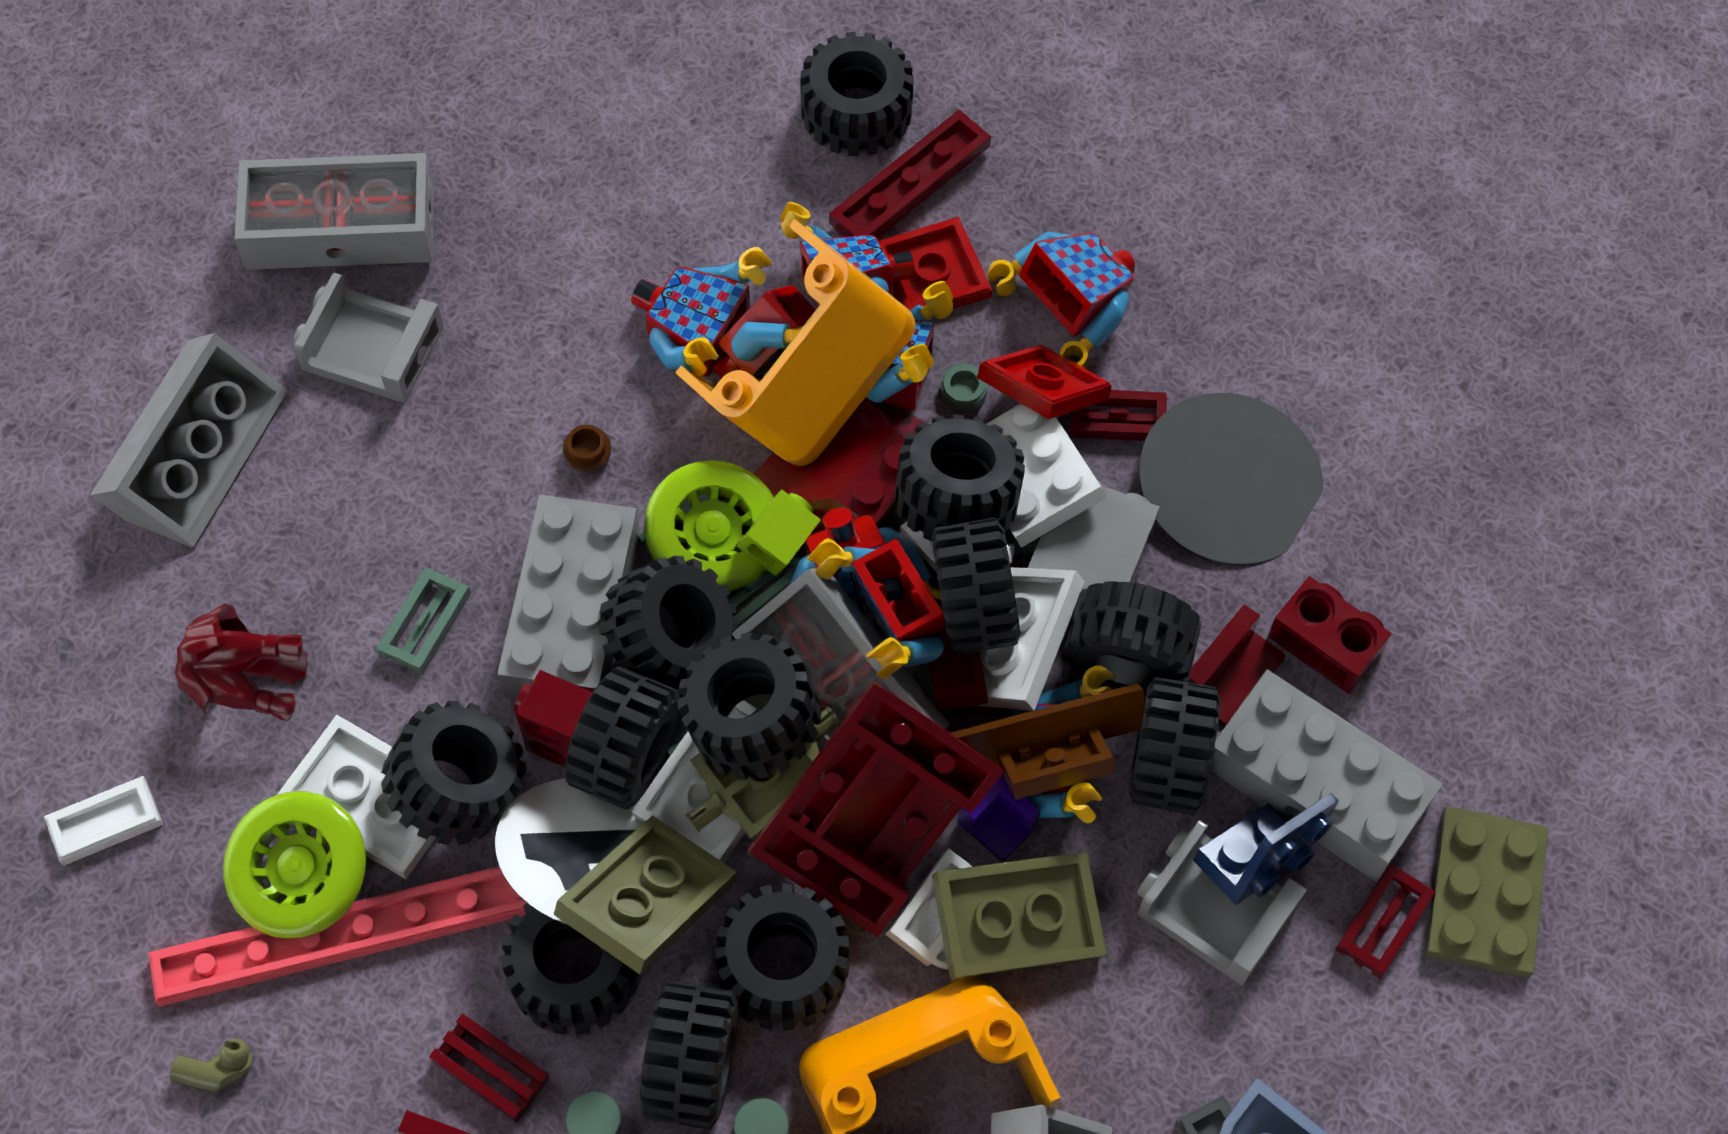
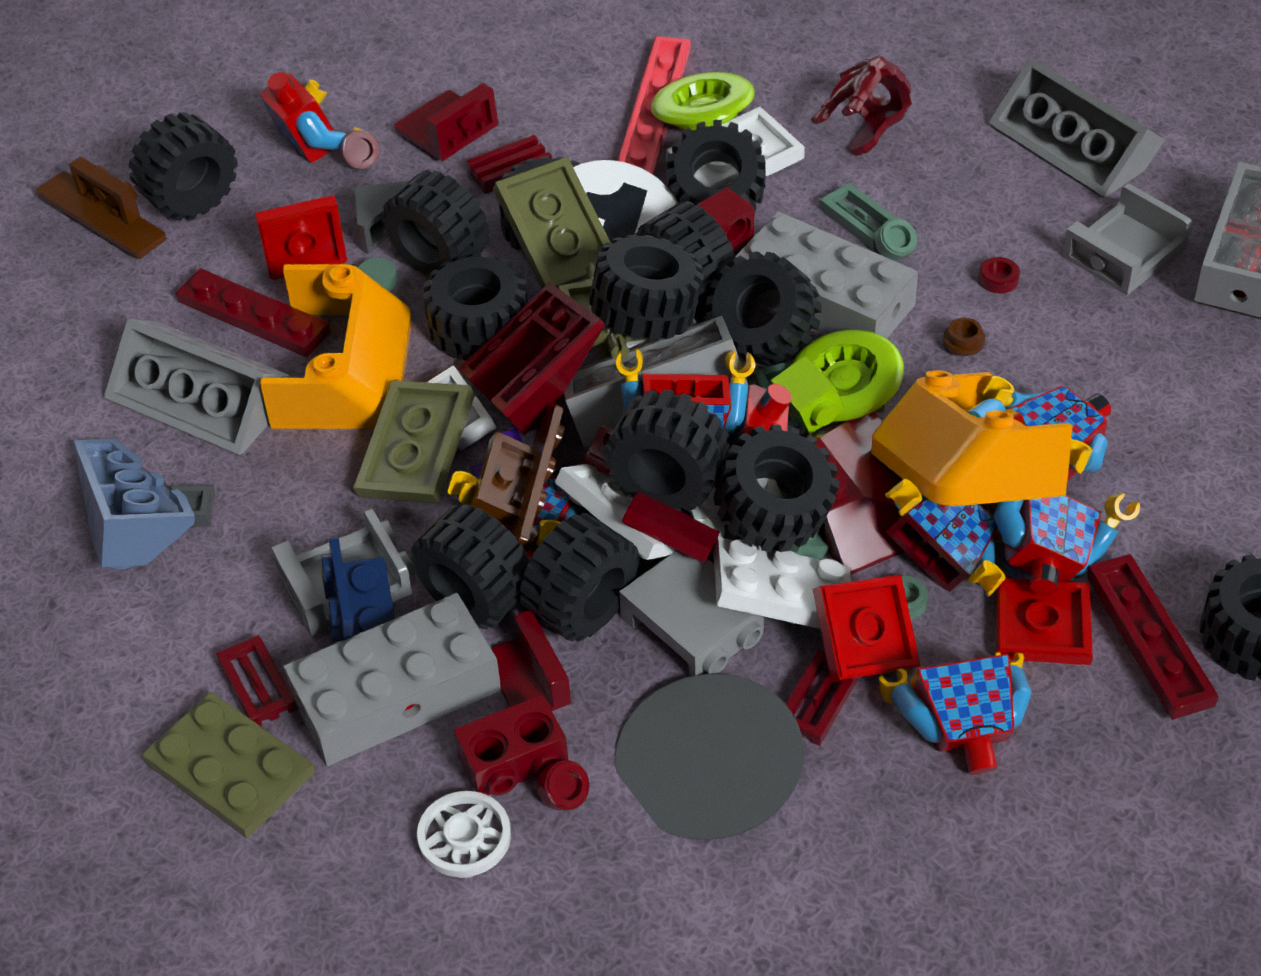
camera: 120 degrees right, 15 degrees down
(103, 820) = (797, 43): white tile -> none
(217, 1073) = (593, 52): olive arm -> none
(458, 563) = (896, 239): none -> sand green tile
(467, 449) = (999, 275): none -> dark red tile
(1038, 572) = (670, 527): none -> dark red tile
(1340, 573) = (563, 785): none -> dark red tile
(1430, 641) = (464, 834): none -> white wheel

